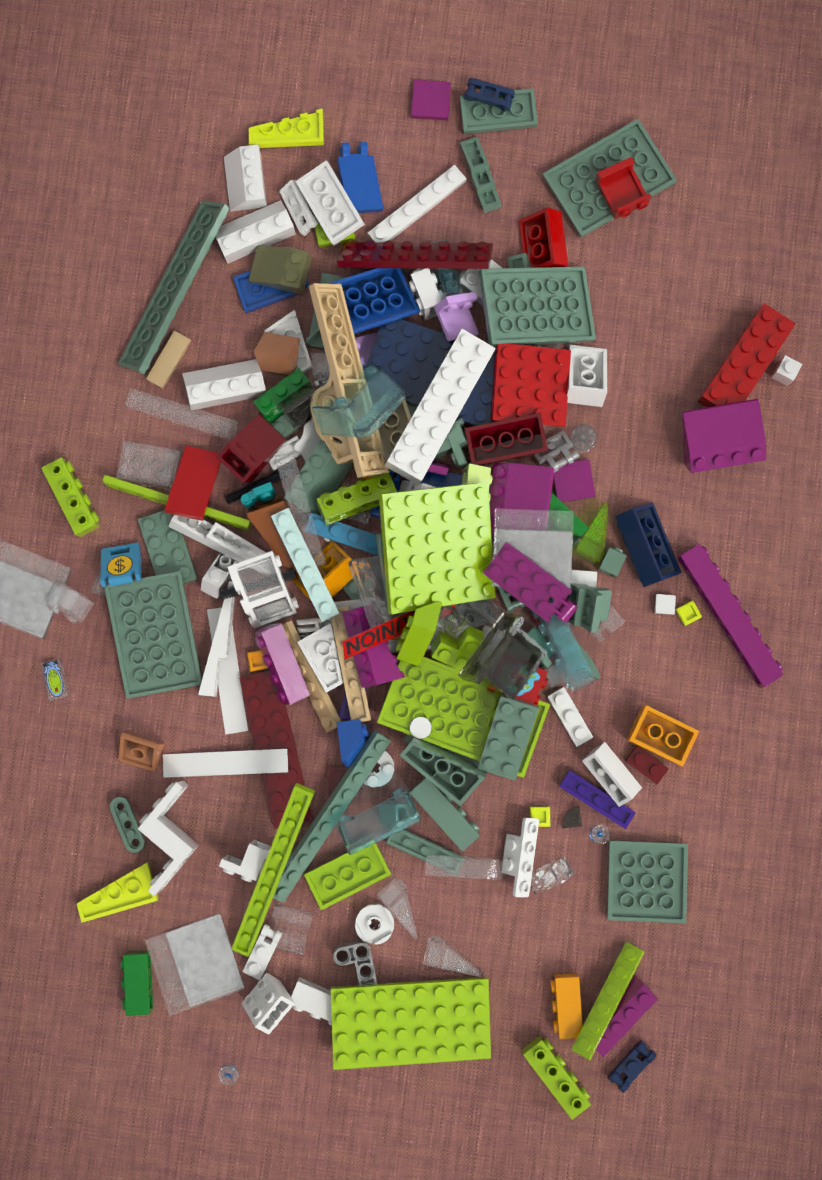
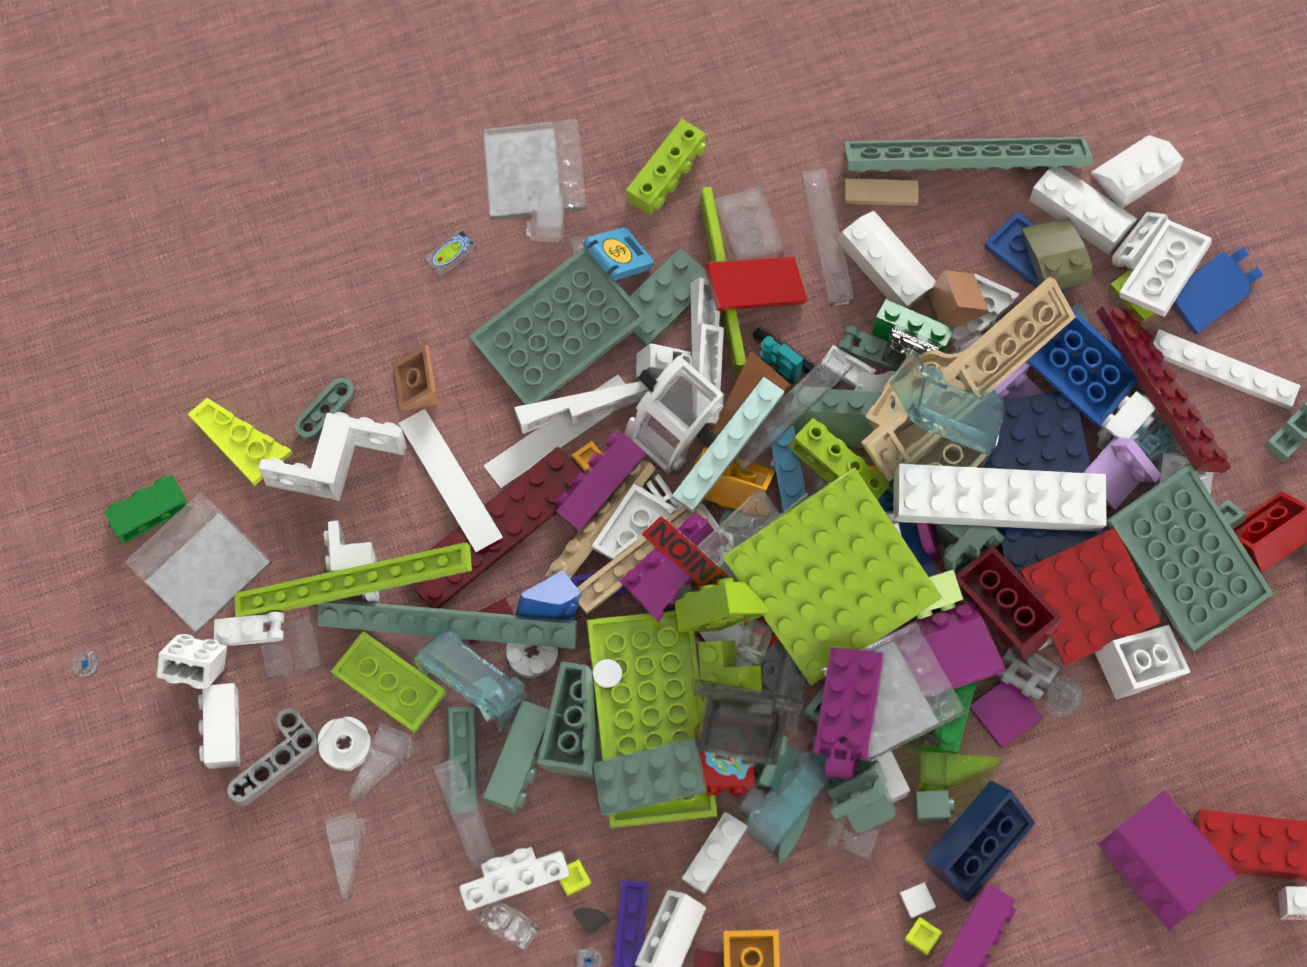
camera: 60 degrees right, 15 degrees down
(251, 449) = (828, 323): dark red slope -> none
(294, 132) = (1227, 198): neon yellow wing -> none
(410, 1023) = (245, 843): lime plate -> none

